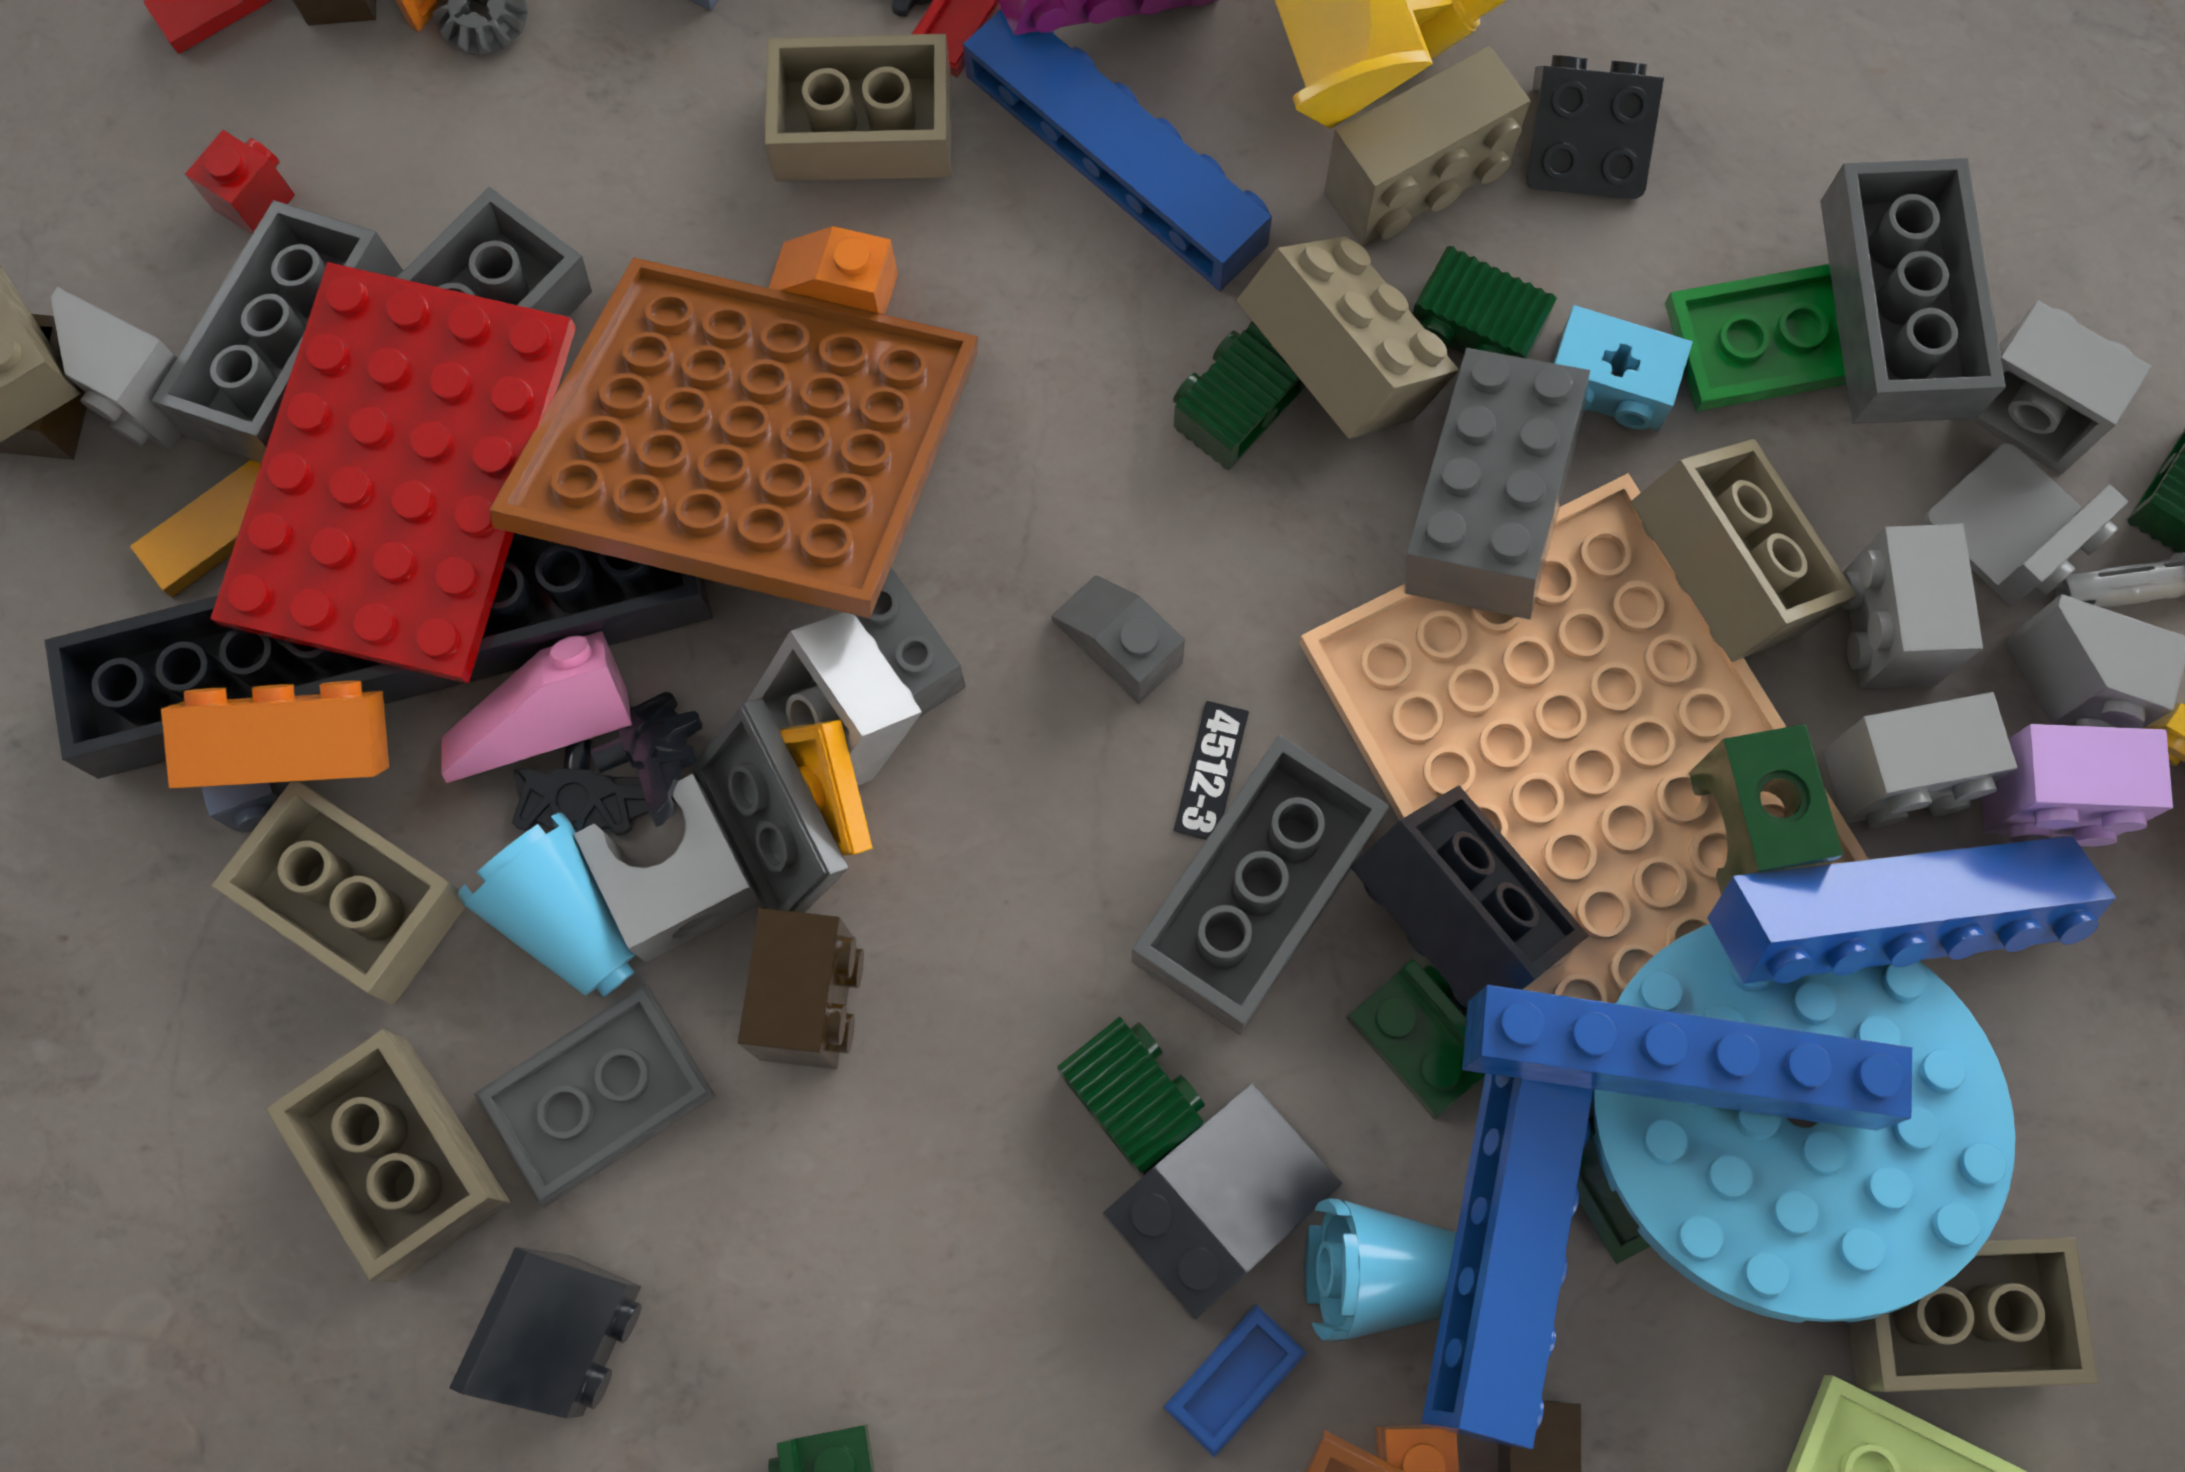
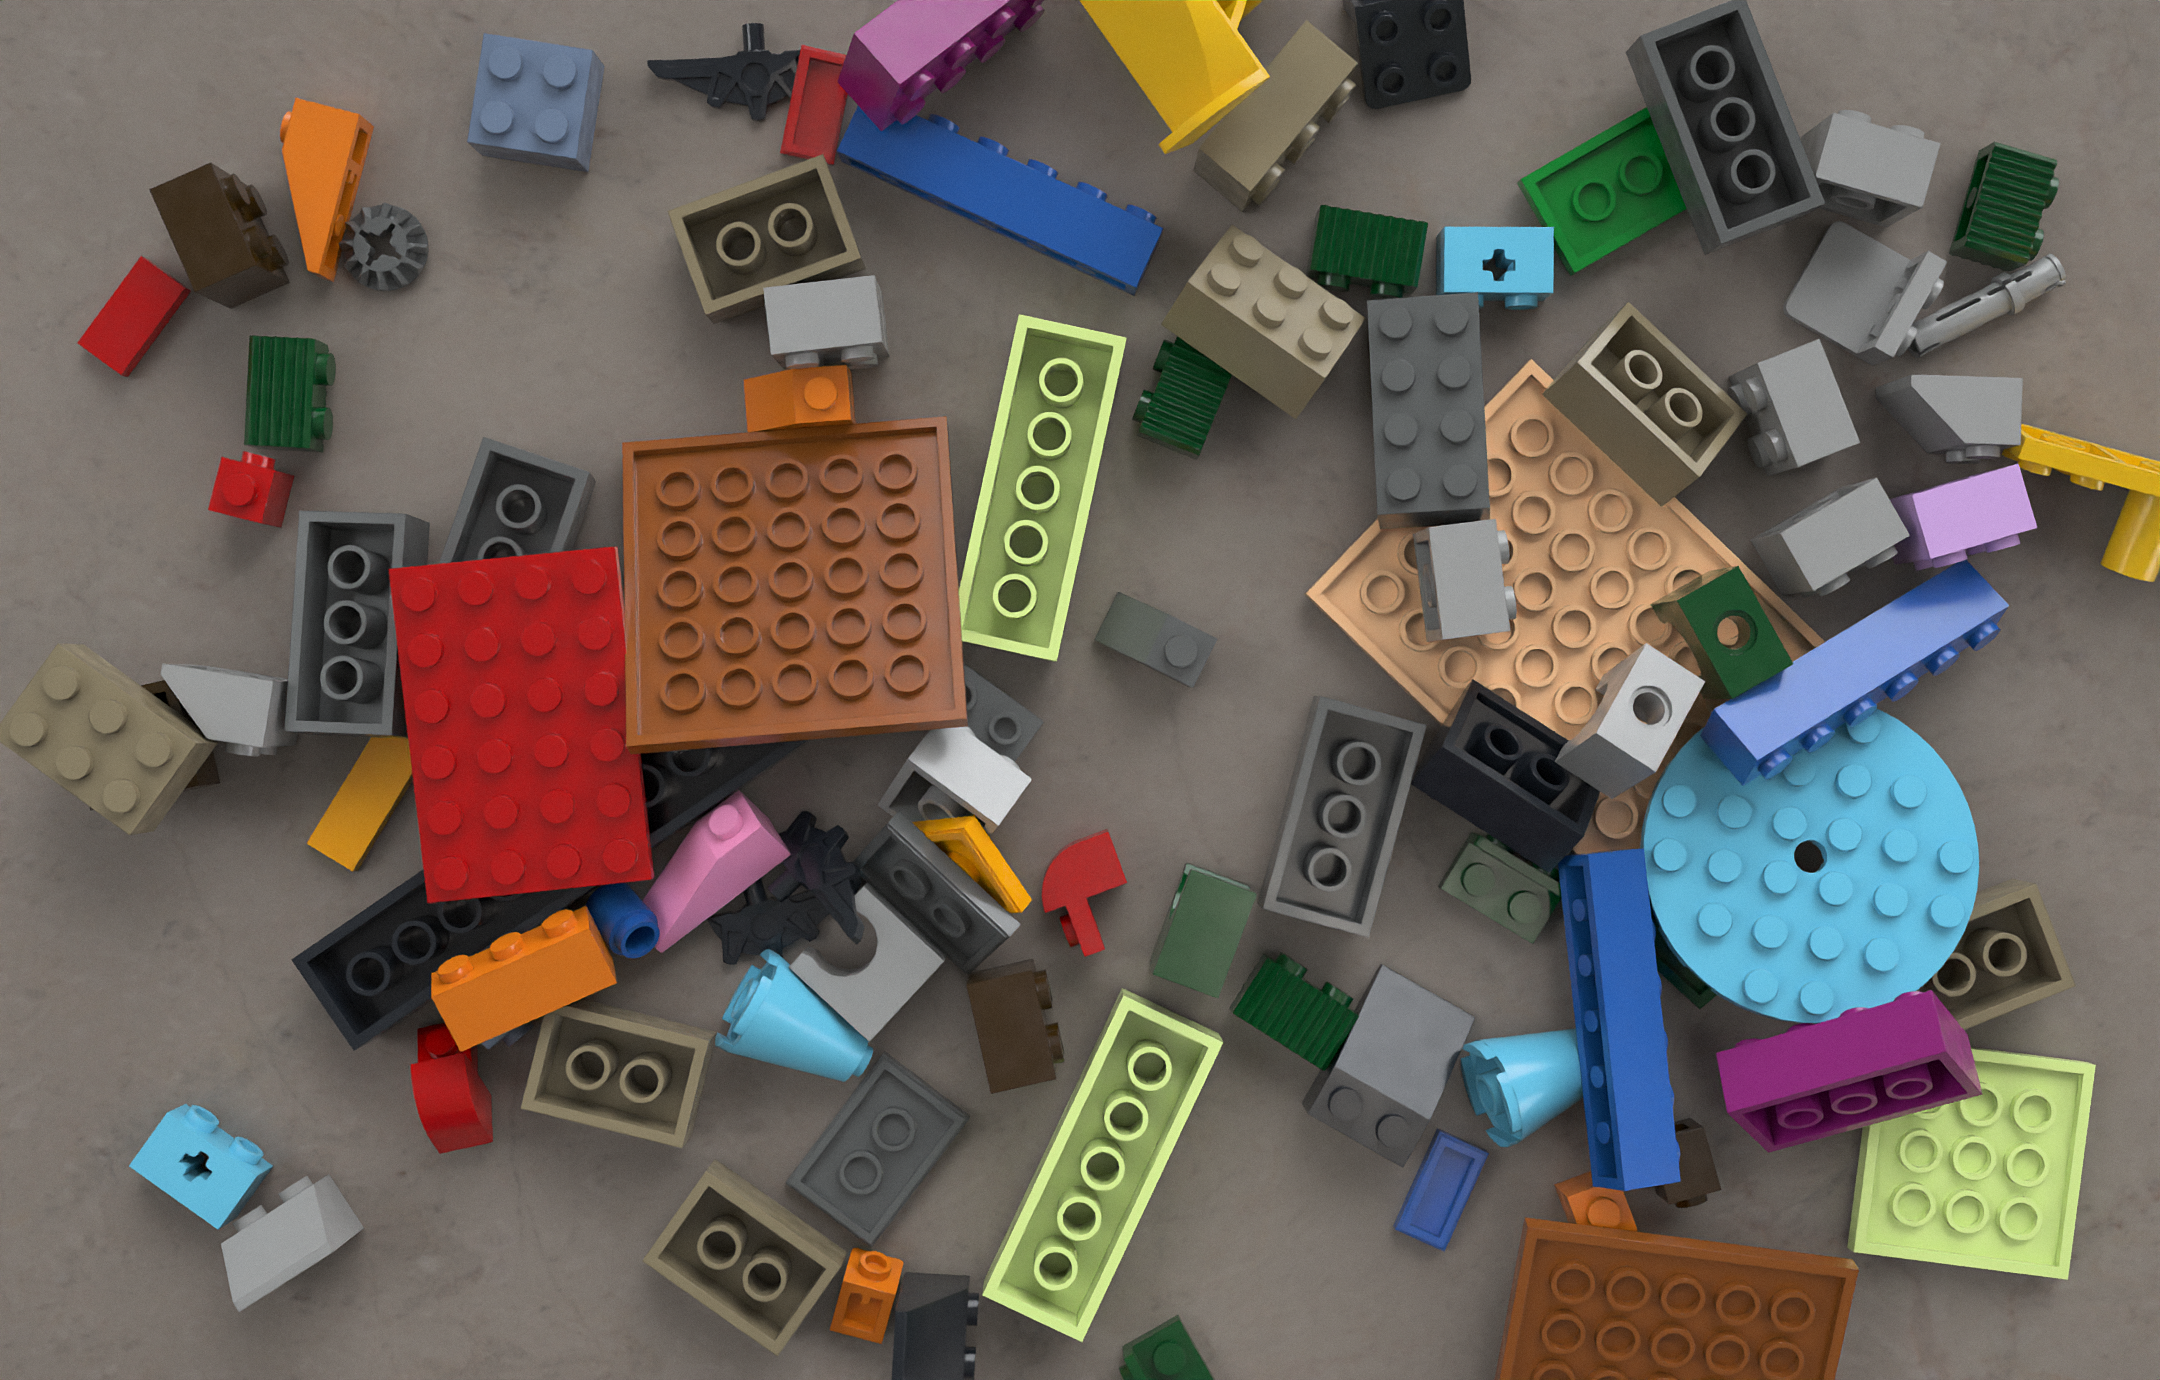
camera: 25 degrees left, 15 degrees up
(147, 856) = (450, 1092): none -> red brick
(321, 107) = (288, 394): none -> dark green brick
(419, 730) = (623, 920): none -> blue brick
(489, 1255) = (867, 1295): none -> orange bracket
(836, 1196) = (1102, 1165): none -> yellowish green brick
(890, 191) = (827, 323): none -> light grey brick
(936, 855) = (1073, 876): none -> red brick
(1045, 433) = (1038, 486): none -> yellowish green brick
(1054, 953) = (1202, 930): none -> dark green piece
(1211, 769) = (1267, 723): sticker -> none
(1482, 656) = (1464, 580): none -> light grey brick
(1627, 869) = (1614, 745): none -> light grey piece
(1688, 1058) = (1715, 864): blue brick -> none
(1785, 1384) = (1848, 1071): none -> magenta brick

